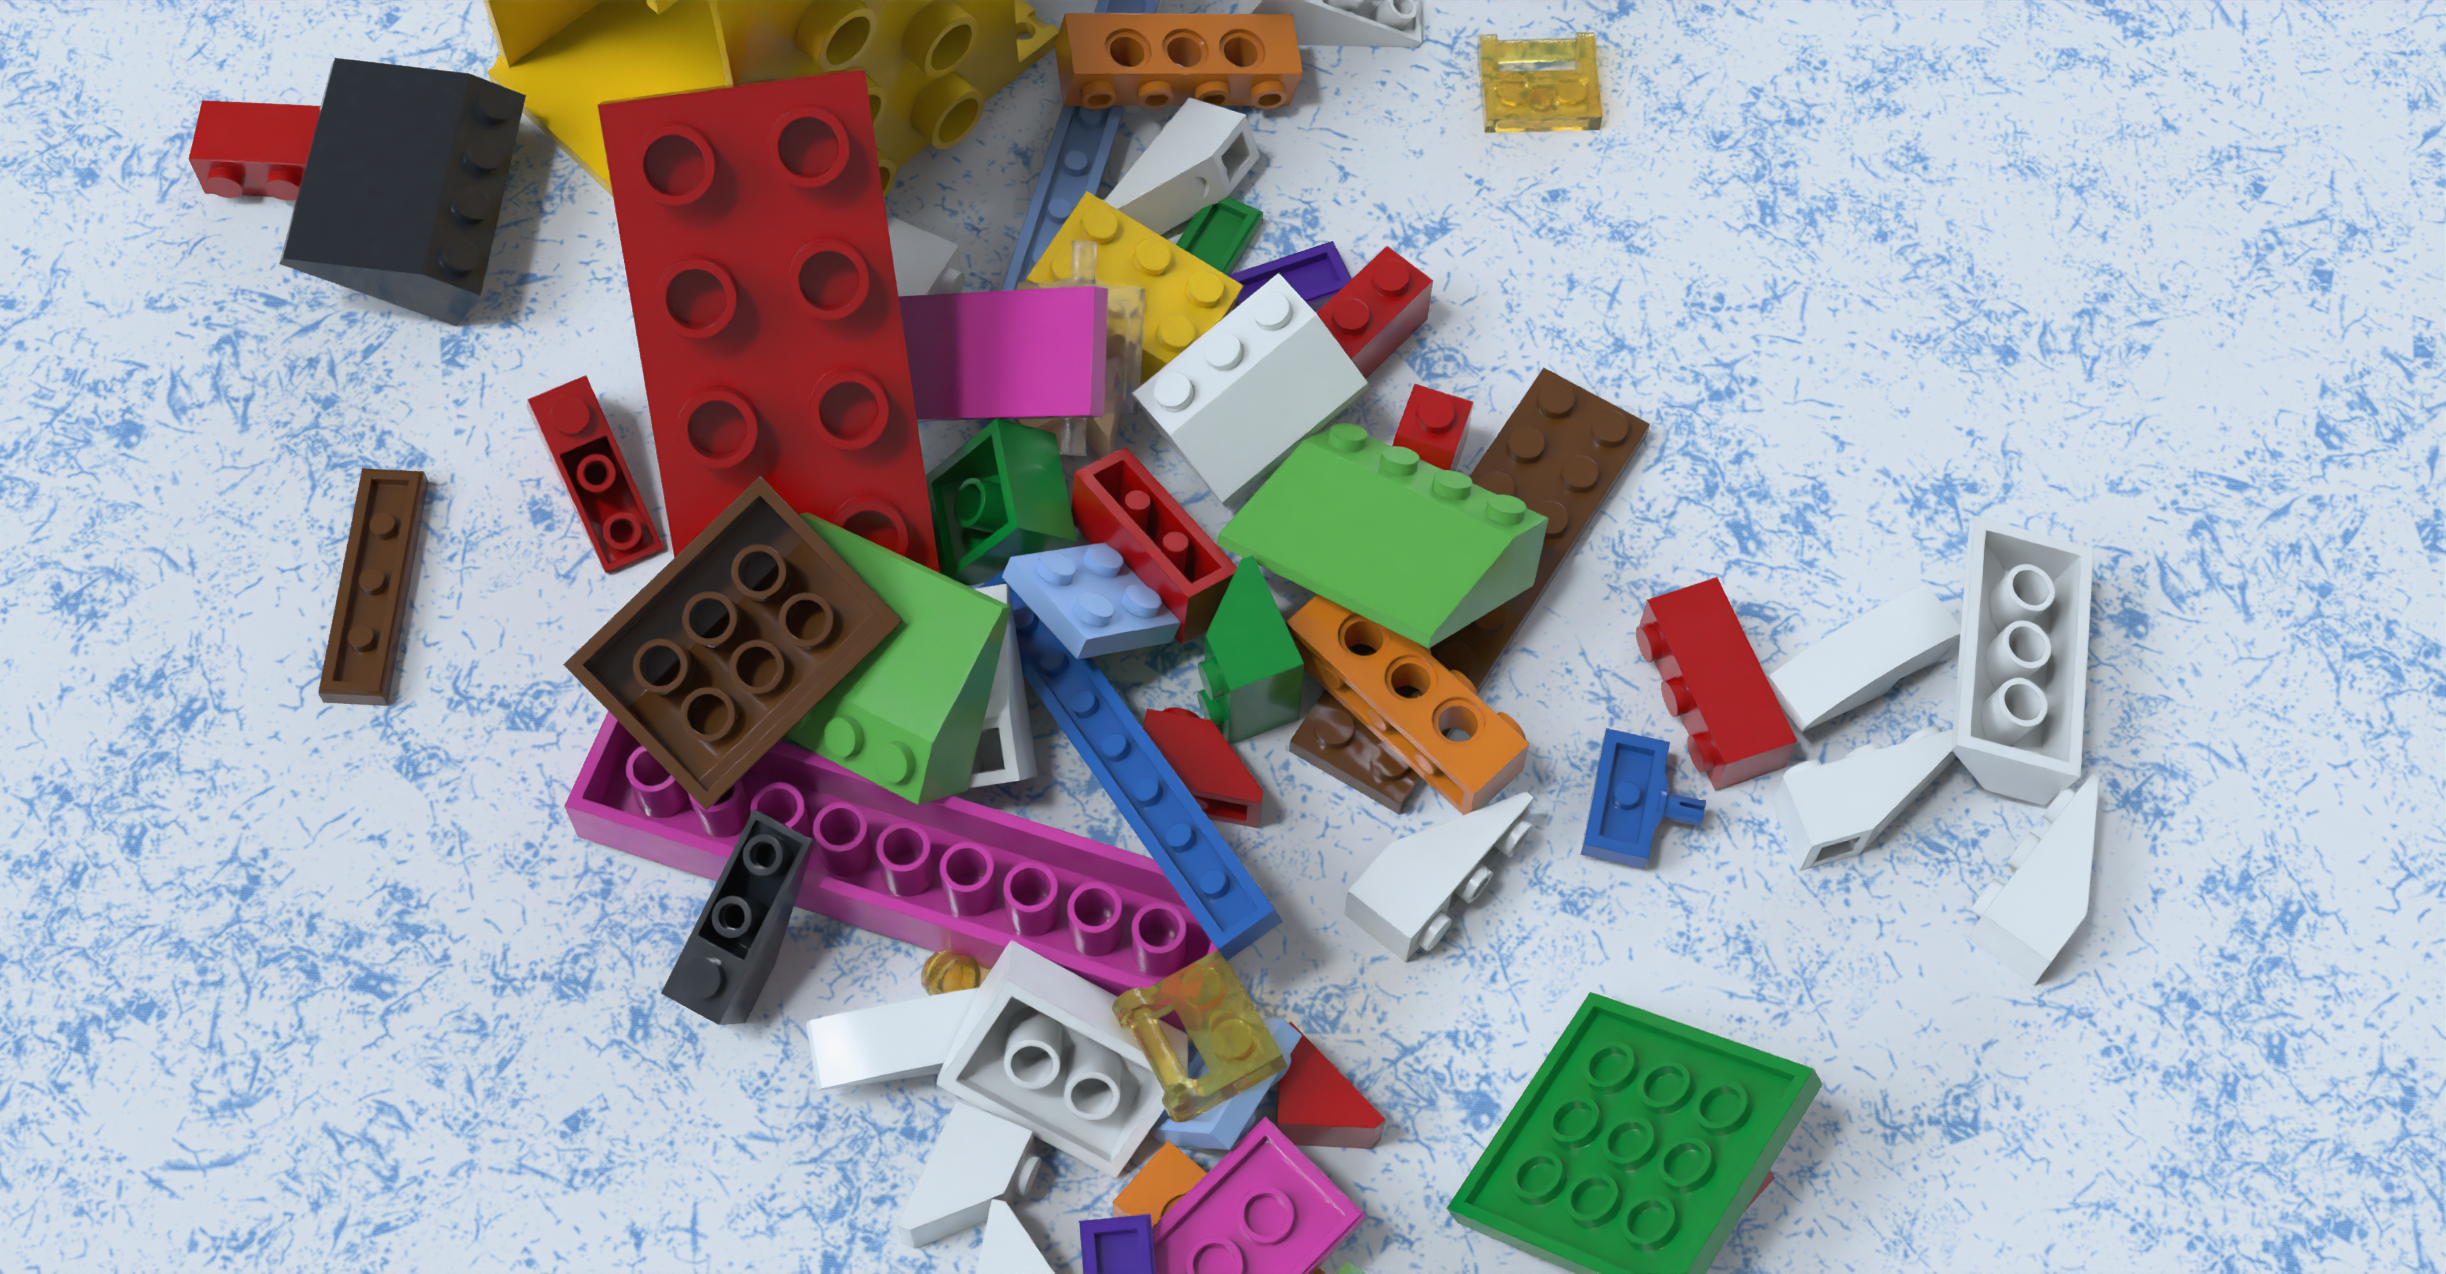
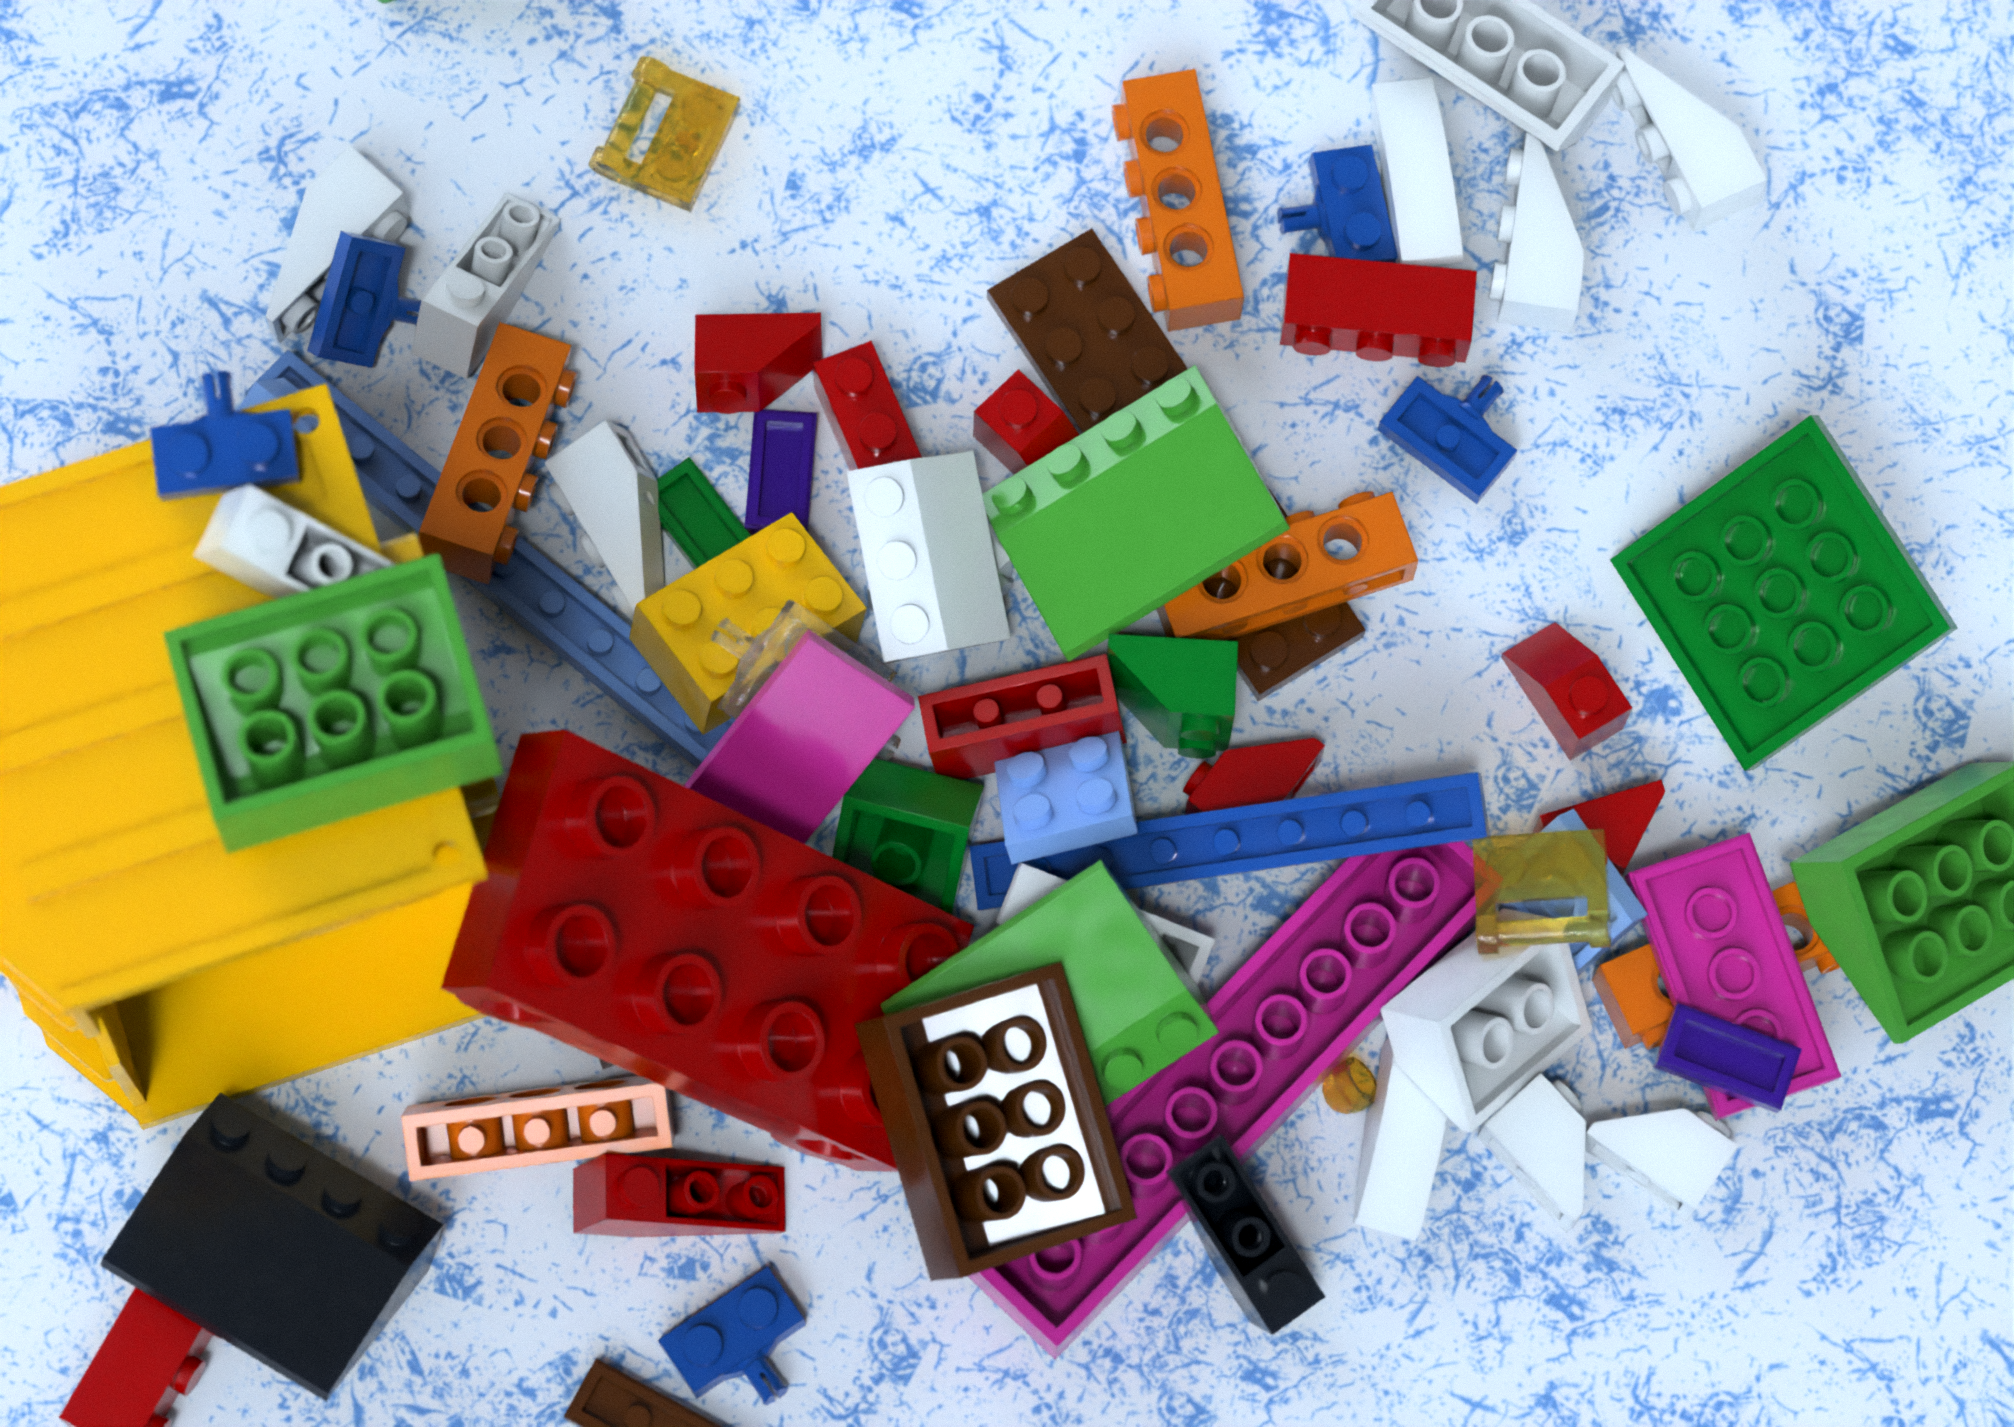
camera: 65 degrees left, 10 degrees up
(489, 572) = (735, 1338): none -> blue plate
(589, 320) = (536, 1127): none -> brick
(1369, 207) = (752, 358): none -> red slope
(1424, 875) = (1449, 648): white slope -> none
(1437, 1008) = (1568, 689): none -> red slope
(1655, 540) = (1174, 109): none -> orange brick
(1796, 617) = (1345, 206): none -> blue plate

